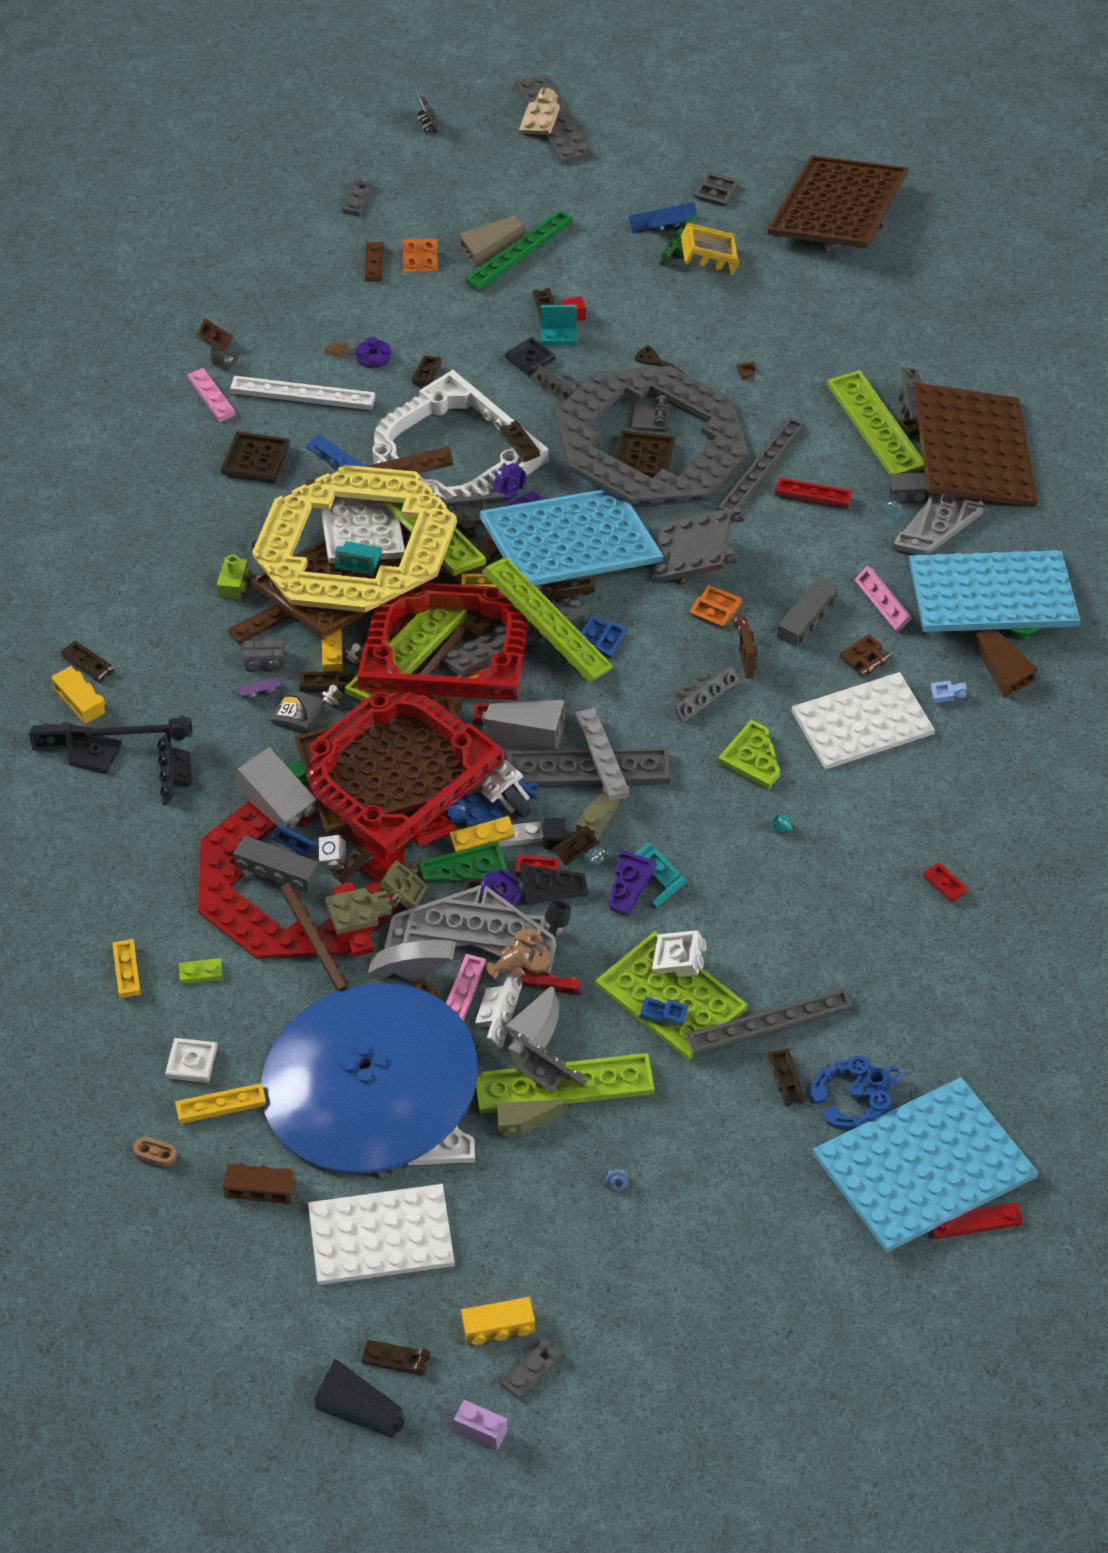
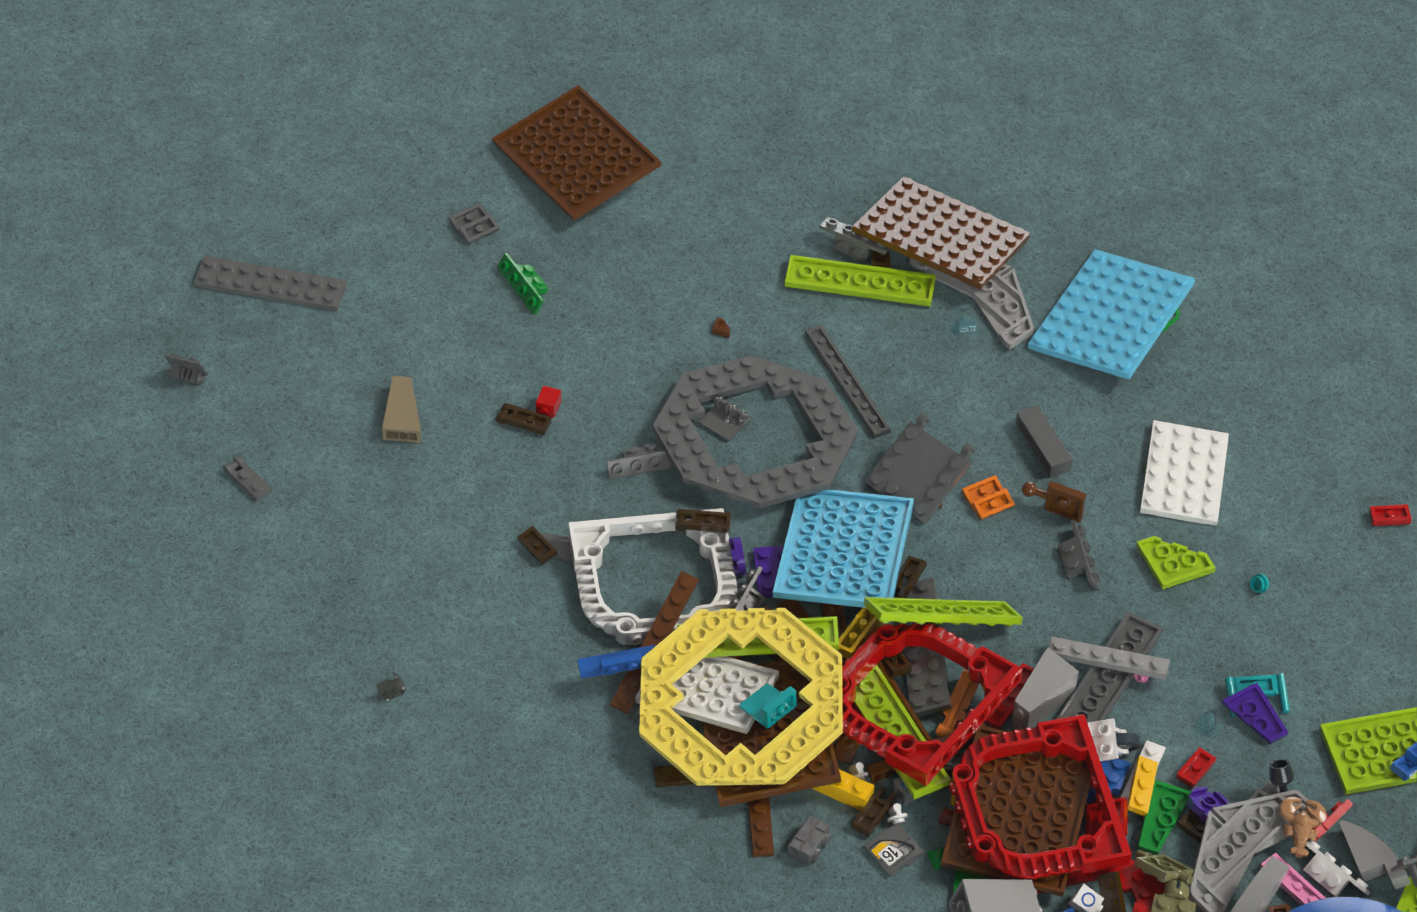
camera: 60 degrees left, 0 degrees up
(211, 394) = (427, 721): bright pink plate -> none
(215, 334) = (350, 678): reddish brown plate -> none
(233, 577) = (693, 817): lime brick -> none
(255, 456) = (544, 726): dark brown plate -> none
(267, 685) = (845, 863): medium lavender plate -> none
(302, 393) = (487, 651): white plate -> none
(336, 349) = (447, 597): clear orange tile -> none
(373, 345) = (476, 563): dark purple plate -> none
(374, 261) = (350, 511): reddish brown plate -> none
(420, 255) = (376, 473): orange hinge -> none
(518, 250) = (432, 399): green plate -> none
(529, 356) = (580, 463): black plate -> none
(541, 114) = (267, 287): tan plate -> none
(548, 884) = (1224, 767): black wing -> none
(553, 832) = (1169, 736): black brick -> none
(558, 325) = (563, 424): teal bracket -> none
(576, 845) = (1197, 721): dark brown plate -> none
(598, 815) = (1171, 700): olive slope -> none
(603, 636) = (964, 587): blue slope -> none
(645, 451) = (770, 447): dark brown plate -> none
(647, 352) = (655, 382): dark brown piece -> none
(661, 217) = (484, 278): blue bracket -> none
(679, 953) = (1363, 717): white plate -> none
(710, 244) = (559, 267): yellow window -> none
(813, 492) = (907, 364): red plate -> none
(861, 651) = (1111, 432): reddish brown plate -> none
(883, 598) = (1064, 386): bright pink plate -> none
(908, 487) = (953, 300): dark grey brick -> none
(945, 691) = (1193, 404): light blue plate -> none
(1004, 662) = (1189, 351): reddish brown slope -> none

